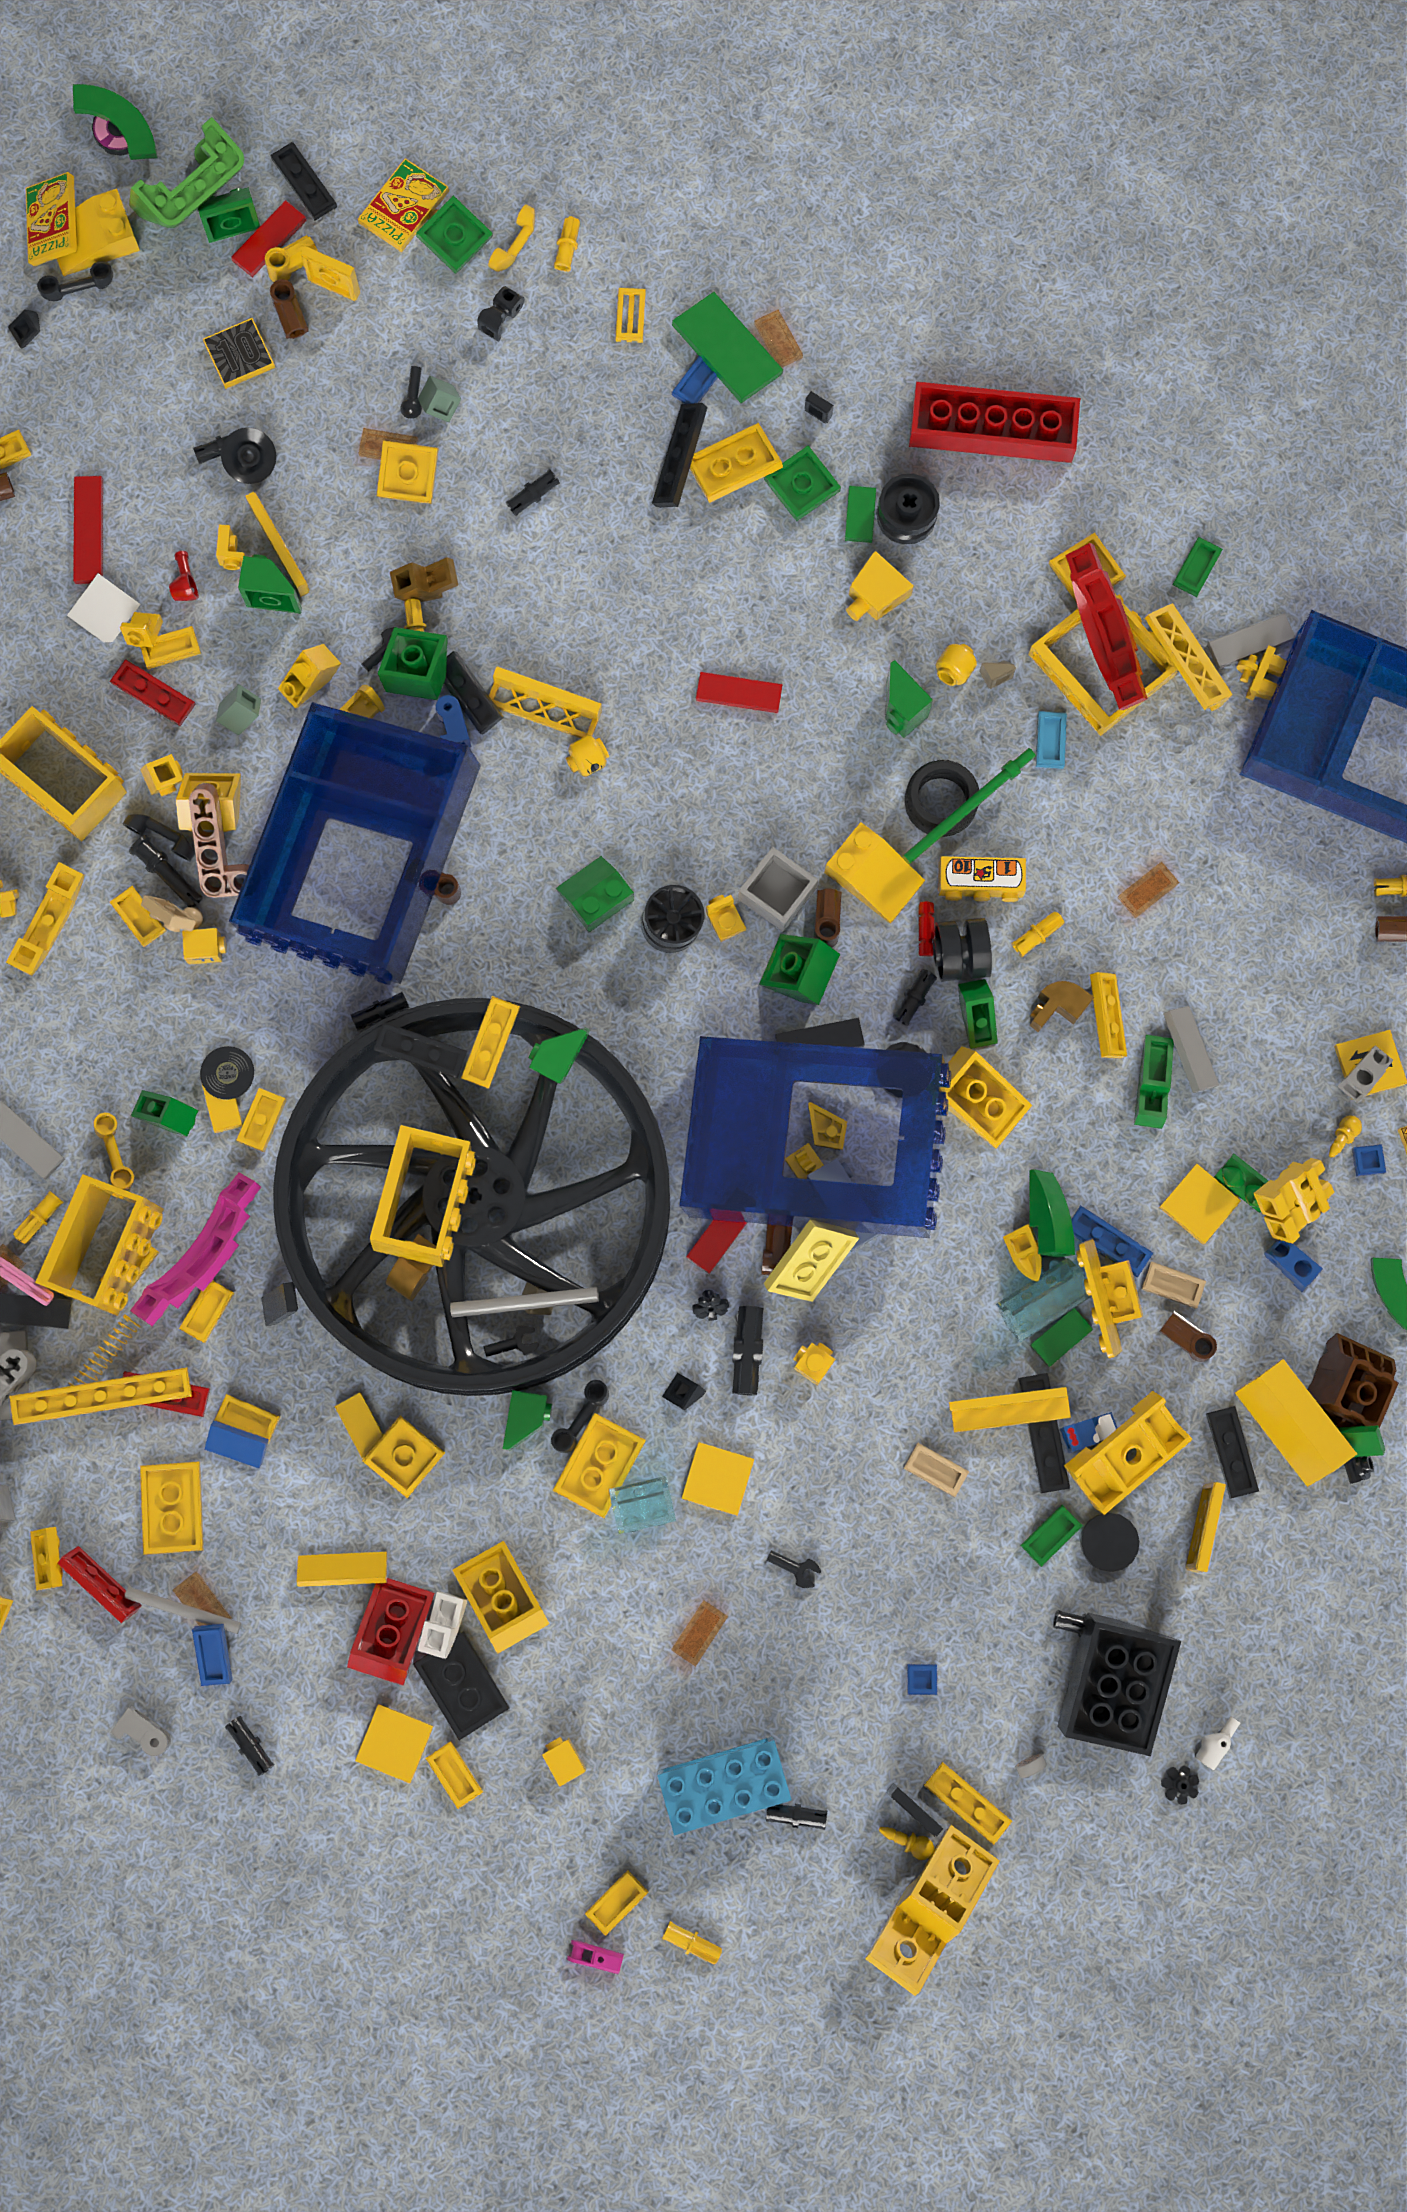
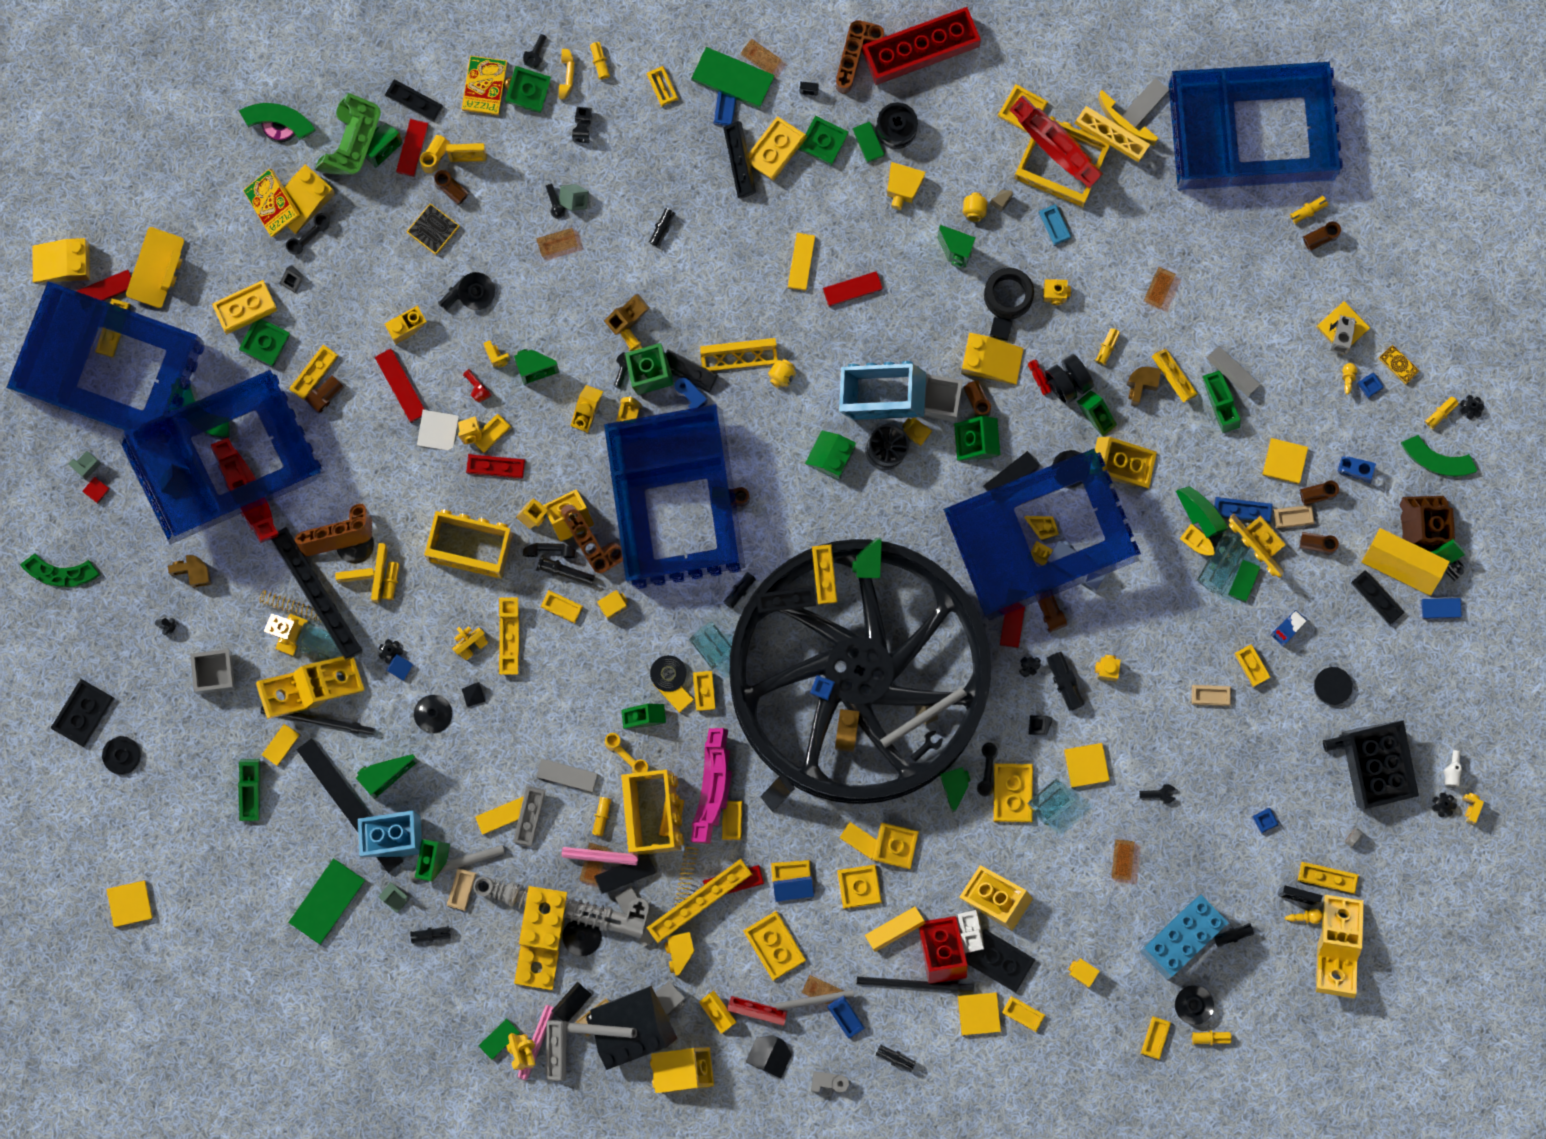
camera: 25 degrees left, 0 degrees up
(41, 1451) = (681, 951): none -> yellow slope
(84, 1654) = (769, 1055): none -> black slope
(132, 454) = (405, 324): none -> yellow slope
(171, 915) = (588, 595): tan plate -> none
(238, 709) = (555, 450): sand green panel -> none
(277, 544) = (522, 336): yellow tile -> none
(300, 1060) = (711, 645): none -> clear light blue brick
(326, 1486) = (859, 886): none -> yellow tile
(379, 1688) = (953, 987): none -> black bar
(406, 1141) = (825, 649): yellow hose -> none
(407, 472) = (578, 253): yellow tile -> none
(413, 1194) = (822, 687): none -> blue tile
(490, 195) = (535, 52): none -> black bar
(601, 1959) = (1163, 1074): dark pink bar -> none
(663, 819) = (882, 410): none -> dark azure hose
(690, 624) = (801, 261): none -> yellow tile
(696, 1901) = (1204, 1002): none -> black dish
(811, 1260) = (1076, 608): light yellow plate -> none
(899, 395) = (853, 56): none -> dark orange beam
(906, 837) = (1000, 328): none -> black tile
(915, 997) = (1054, 421): black pin -> none
(982, 878) = (1057, 330): brick -> none
(1006, 826) = (1056, 291): none -> yellow brick
(1009, 771) = (1042, 258): green bar -> none
(1010, 1409) = (1236, 638): yellow fence -> none
(1012, 1457) = (1252, 665): none -> yellow plate
(1046, 1443) = (1262, 642): black tile -> none
(1051, 1535) = (1297, 699): green tile -> none
(1104, 1471) = (1309, 645): yellow piece -> none
(1197, 567) = (1088, 74): green tile -> none
(1202, 619) = (1107, 105): none -> yellow slope
(1205, 1527) = (1384, 648): yellow tile -> none
(1215, 1815) = (1472, 812): none -> yellow bracket
(1222, 1269) = (1317, 493): none -> reddish brown piece
(1241, 1180) = (1306, 434): green tile -> none
(1269, 663) = (1161, 129): yellow hips -> none
(1294, 1199) = (1339, 430): yellow hips -> none
(1313, 1511) = (1441, 608): none -> blue tile

